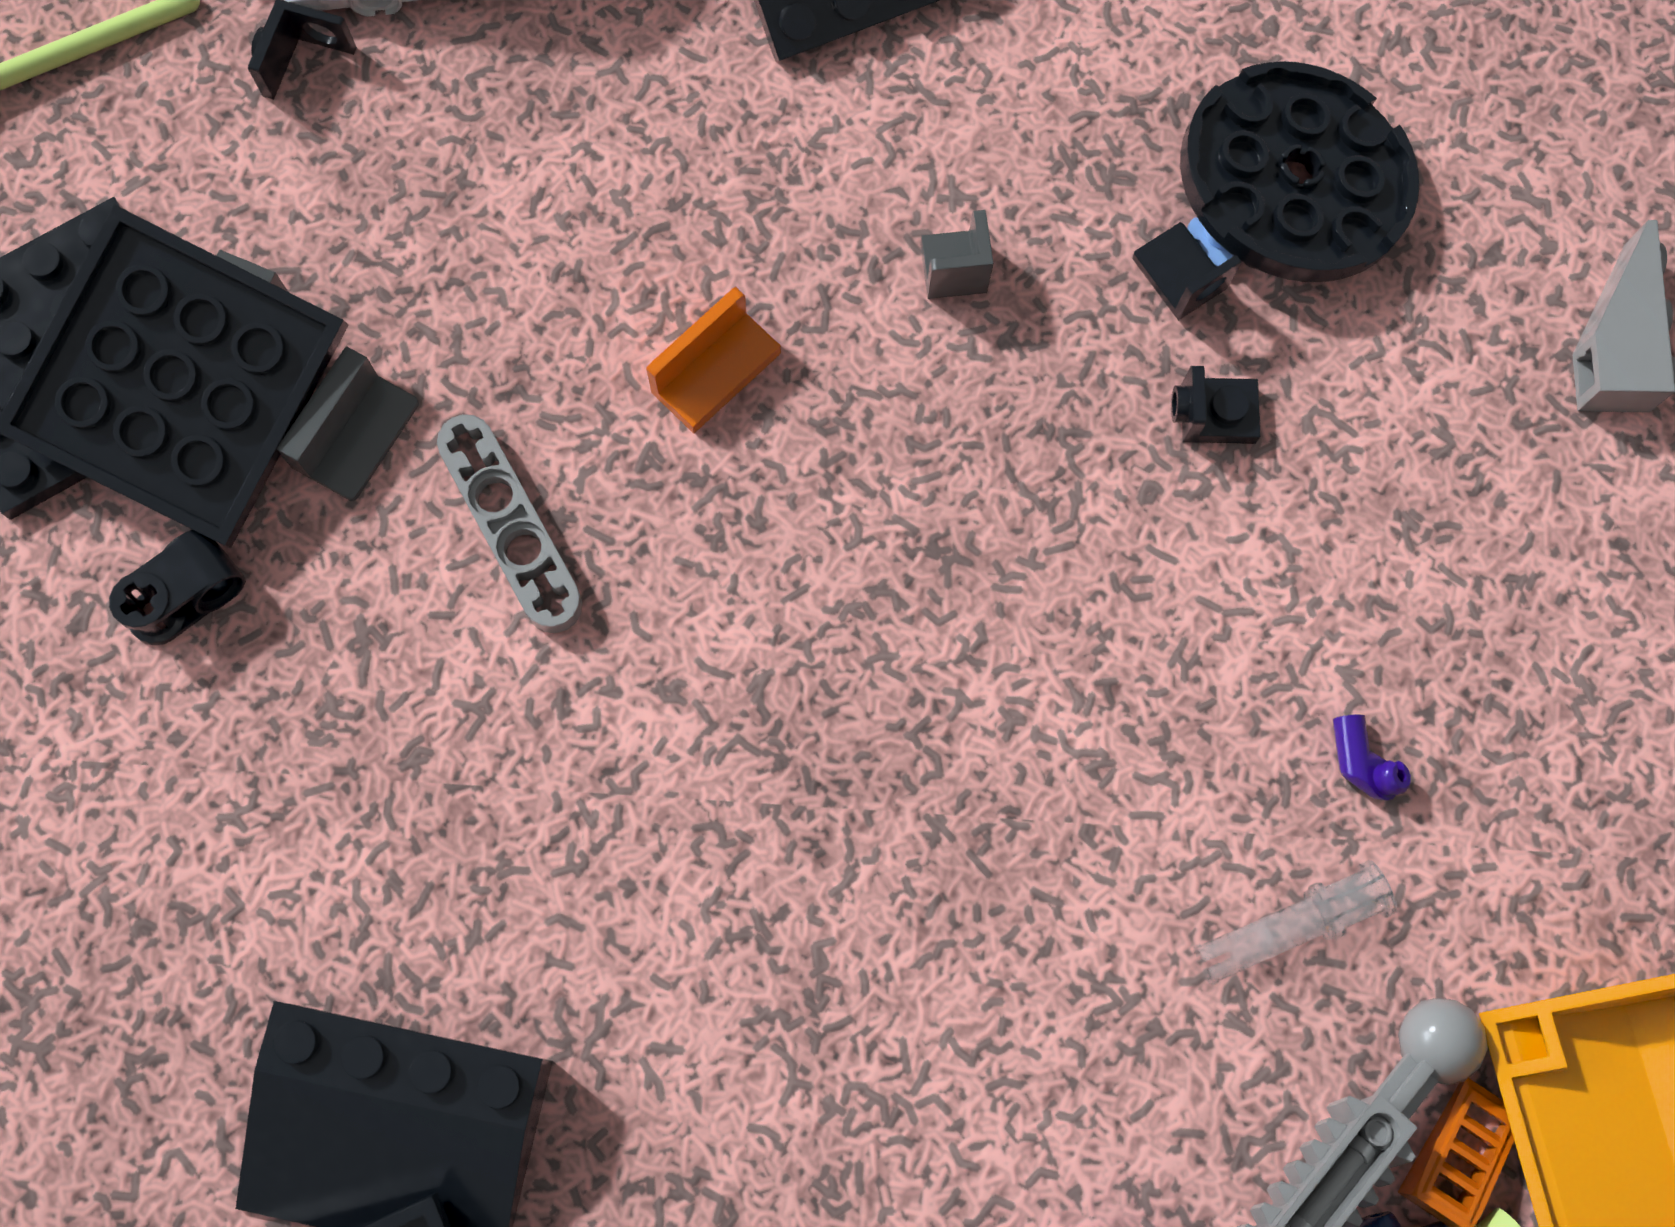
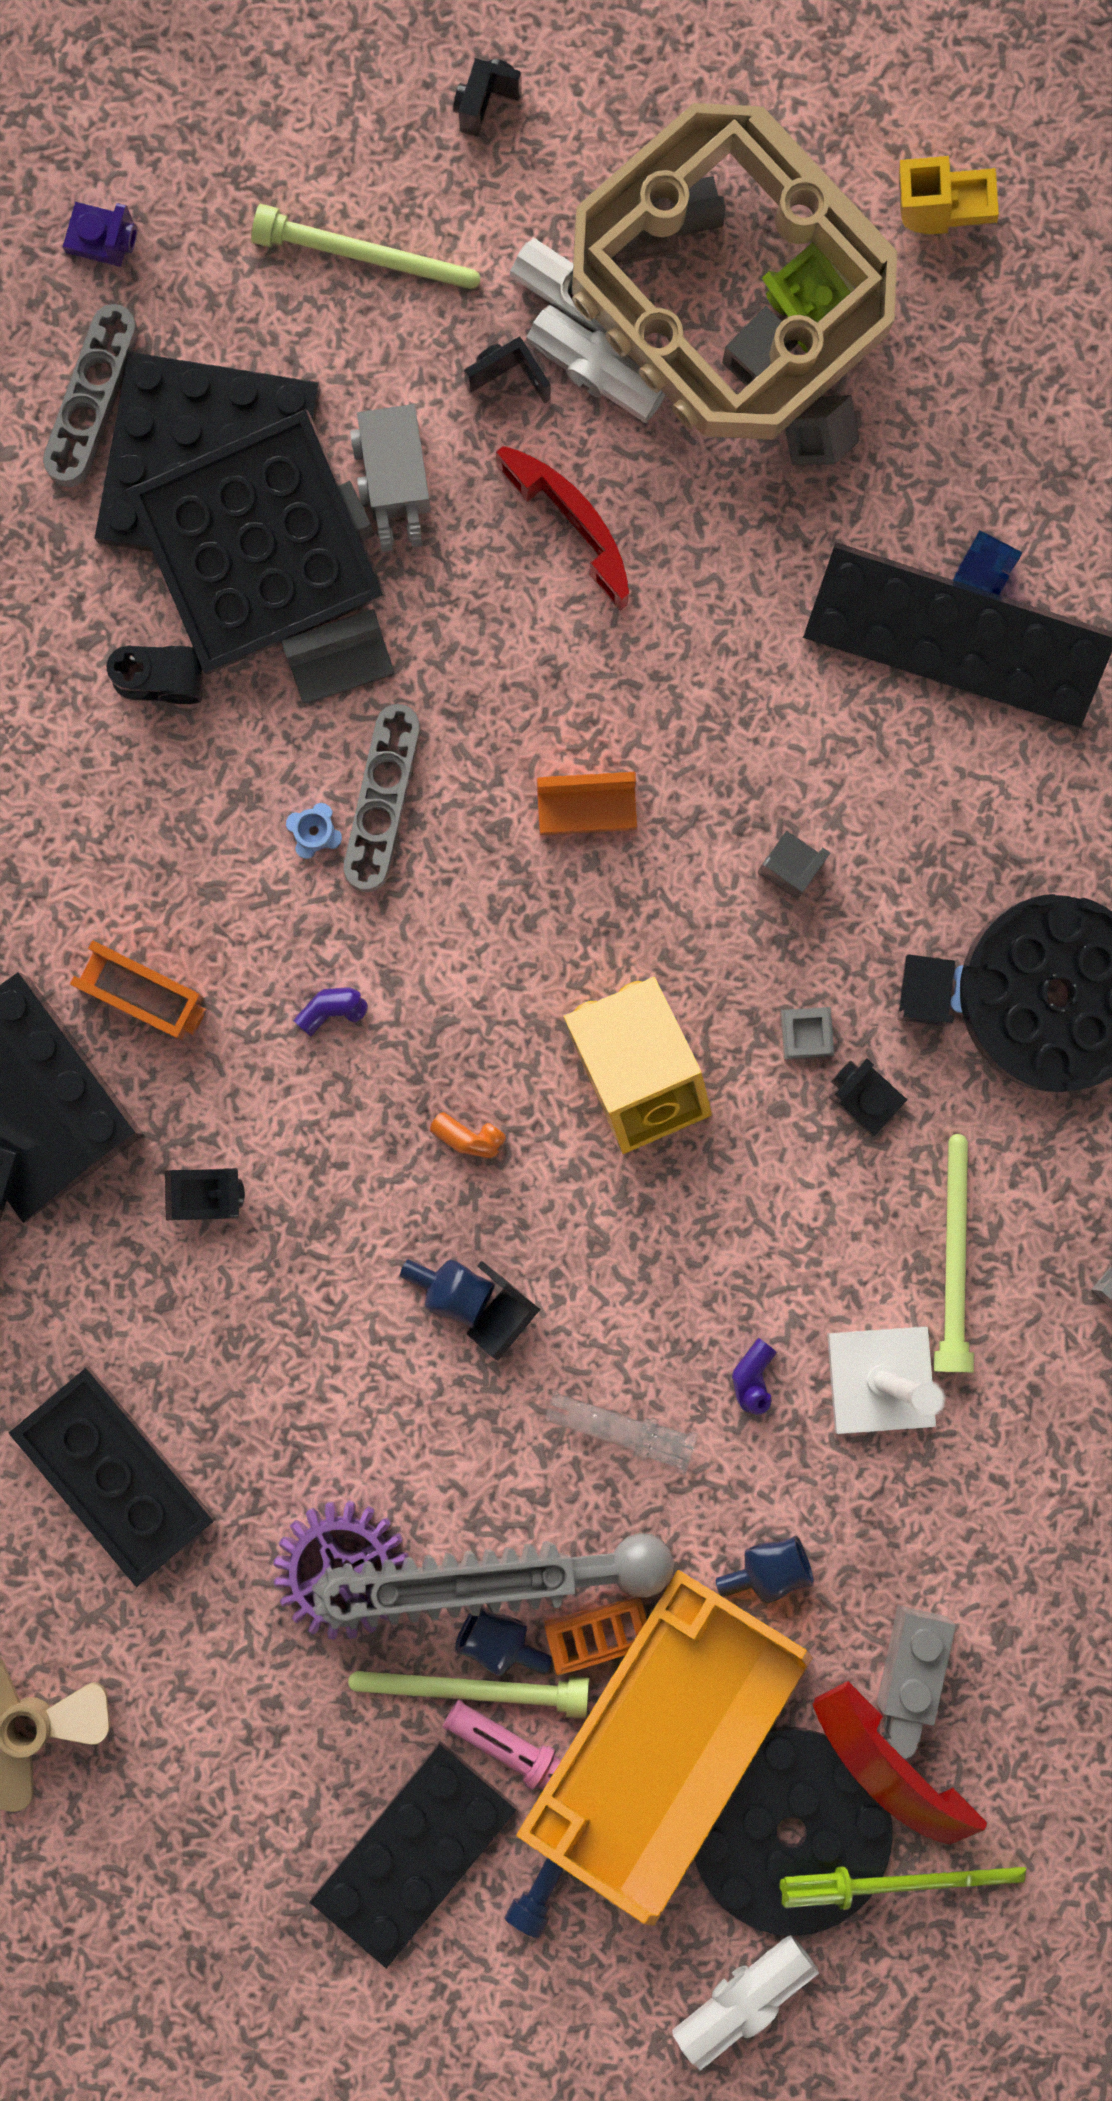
camera: 40 degrees right, 10 degrees up
(256, 213) = (394, 469): none -> light grey hinge
(397, 115) = (531, 477): none -> red slope
(423, 914) = (140, 992): none -> window
(461, 592) = (301, 823): none -> light blue plate
(630, 759) = (331, 1002): none -> dark purple arm
(668, 1064) = (203, 1194): none -> black bracket
(883, 777) = (466, 1141): none -> orange arm
(985, 555) = (639, 1064): none -> yellow slope
(1003, 937) = (451, 1290): none -> dark blue piece
(1079, 916) = (503, 1318): none -> black bracket
(1109, 400) = (807, 1033): none -> light grey tile
(1492, 657) = (882, 1380): none -> white tile
(1520, 570) = (953, 1351): none -> yellowish green piece
(1564, 932) = (770, 1570): none -> dark blue piece

